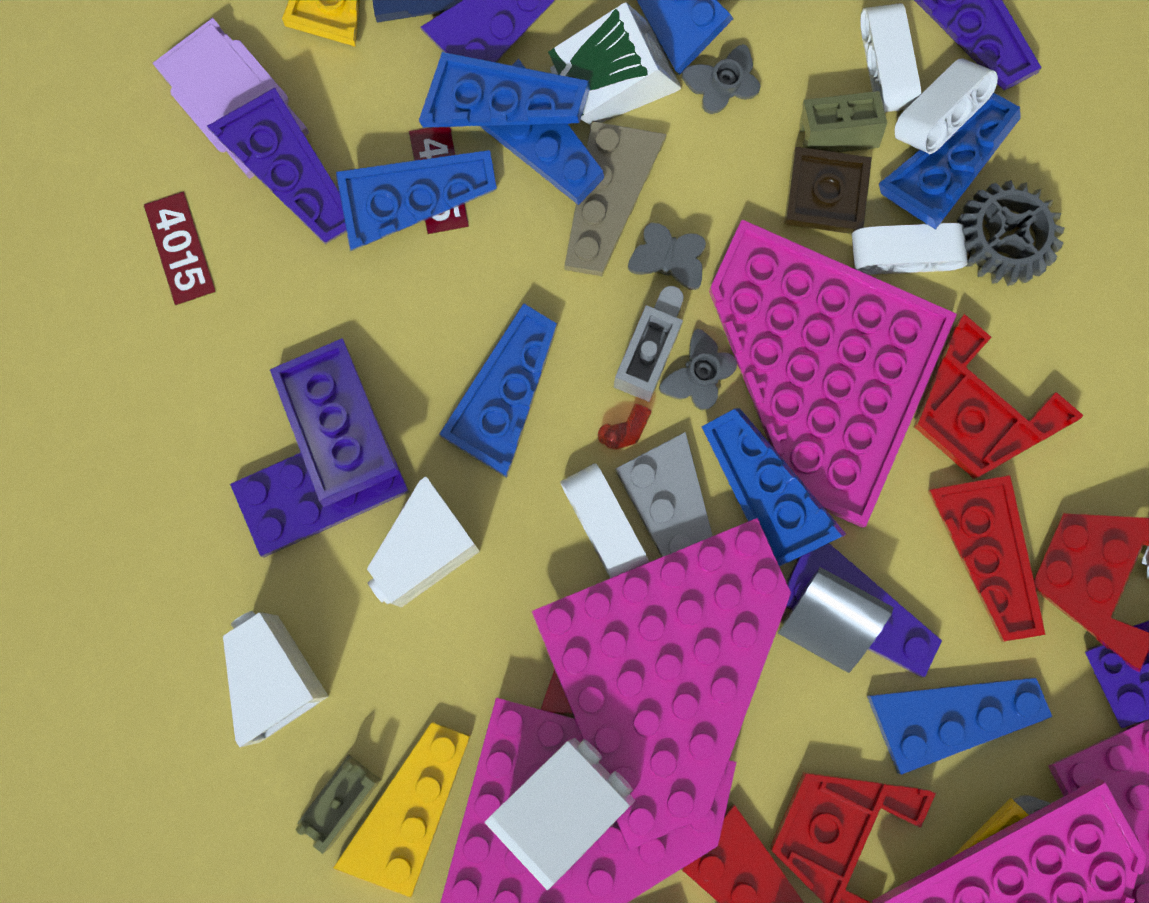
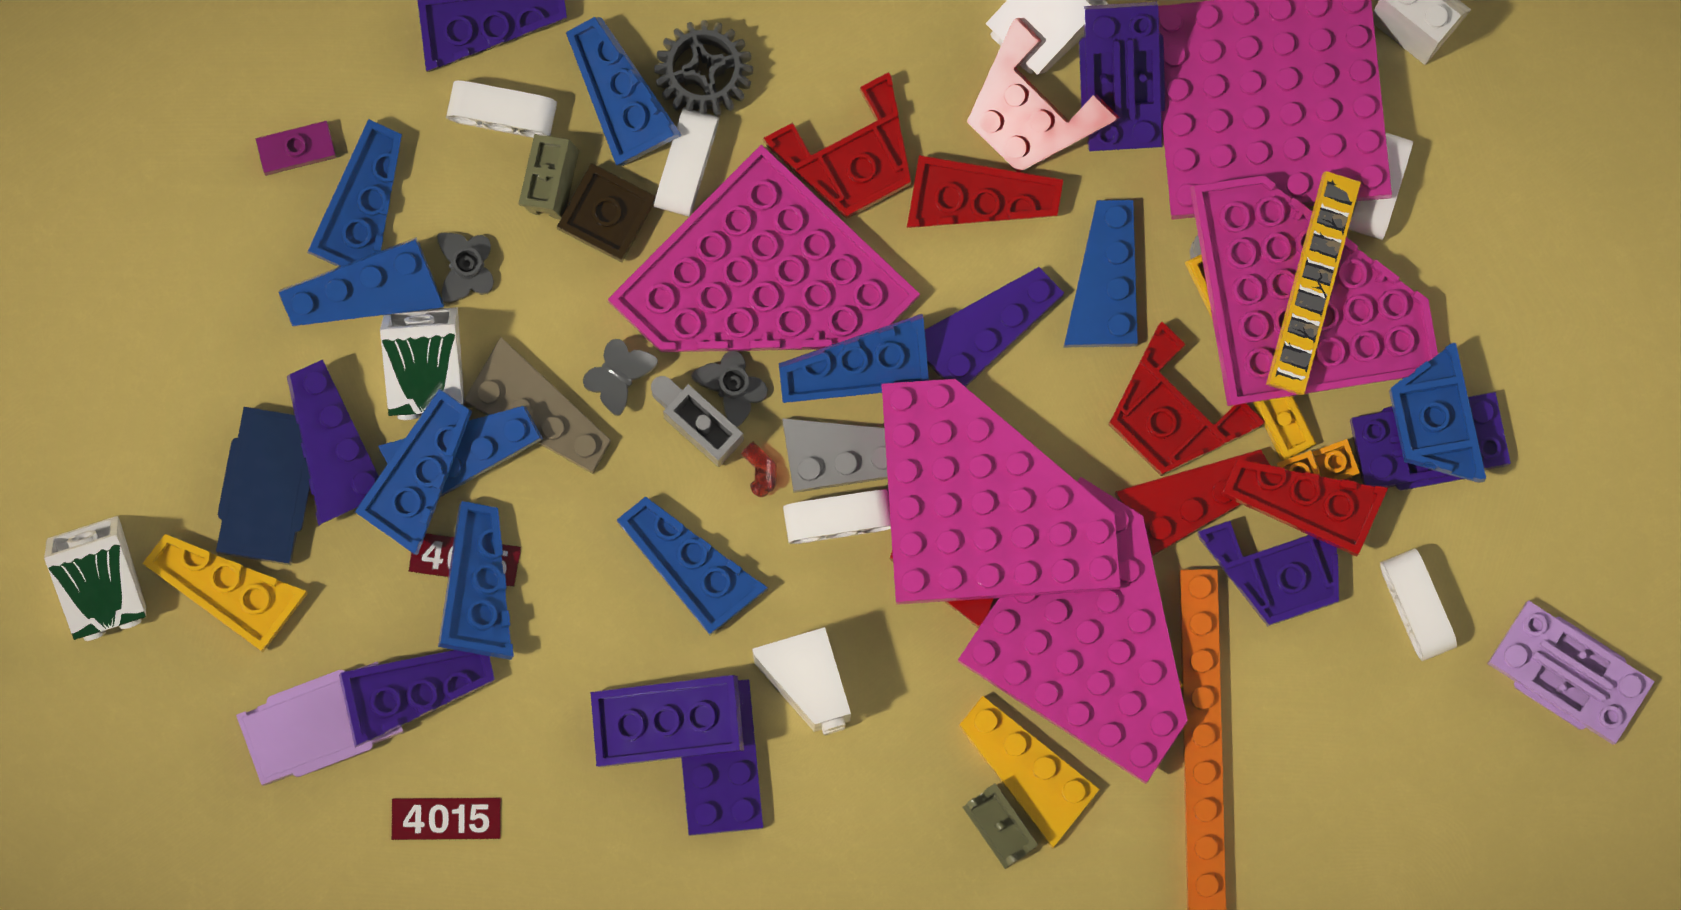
camera: 75 degrees left, 0 degrees up
(266, 677) = (875, 846): white slope -> none
(561, 811) = (1068, 624): white slope -> none
(835, 620) = (991, 350): dark grey slope -> none
(946, 105) = (567, 79): white beam -> none

